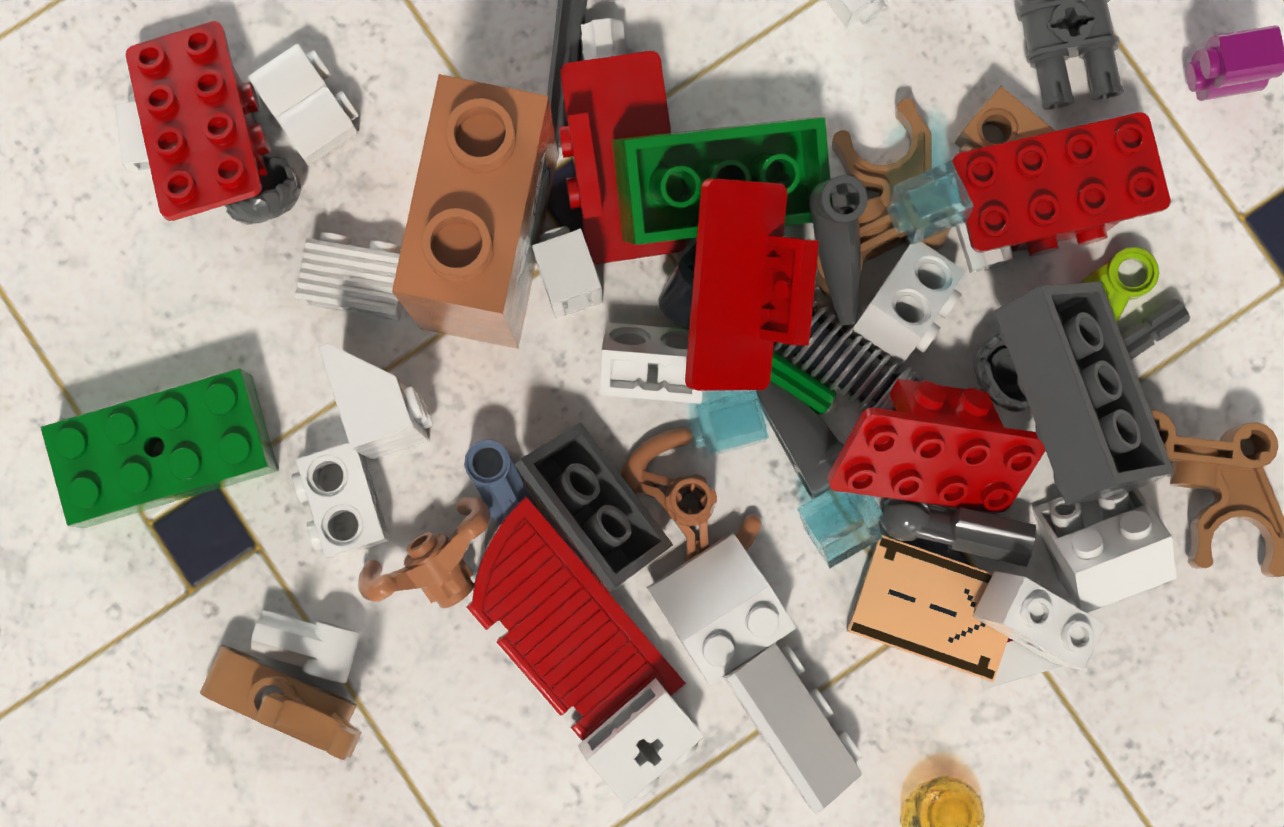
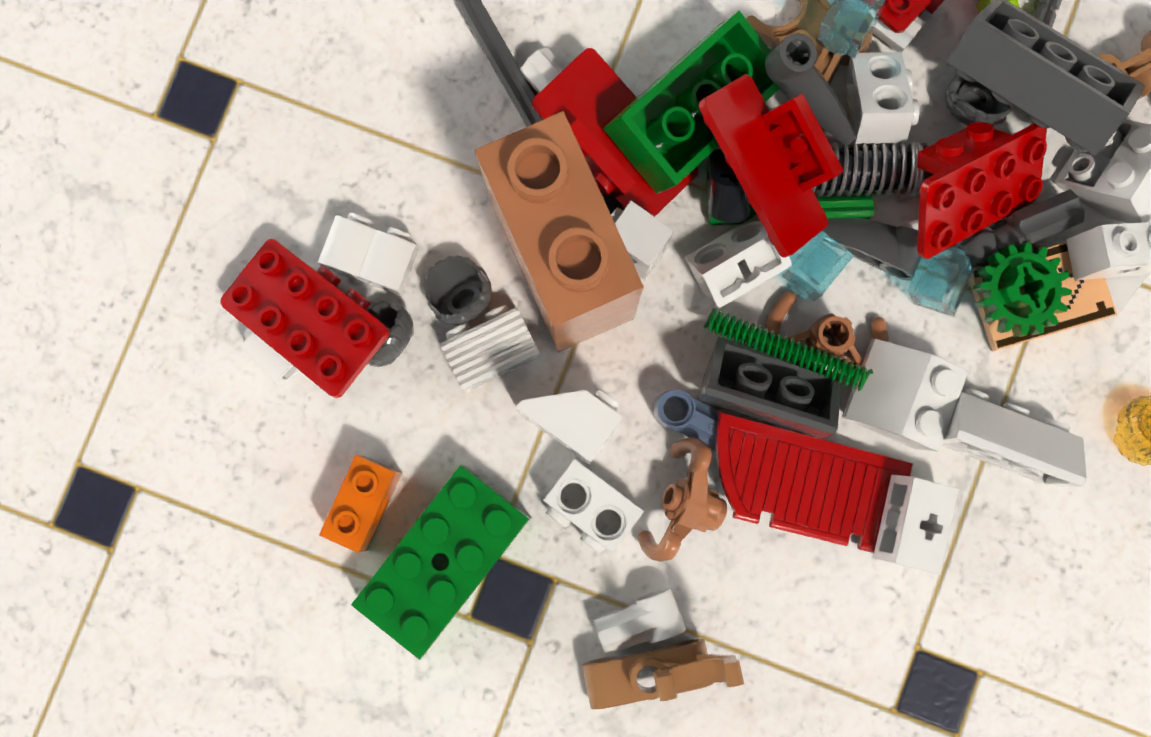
camera: 30 degrees left, 0 degrees up
(122, 339) = (360, 504): none -> orange brick
(362, 198) = (457, 290): none -> dark grey hair
(665, 546) = (780, 345): none -> green piece
(905, 609) = (1042, 289): none -> green gear

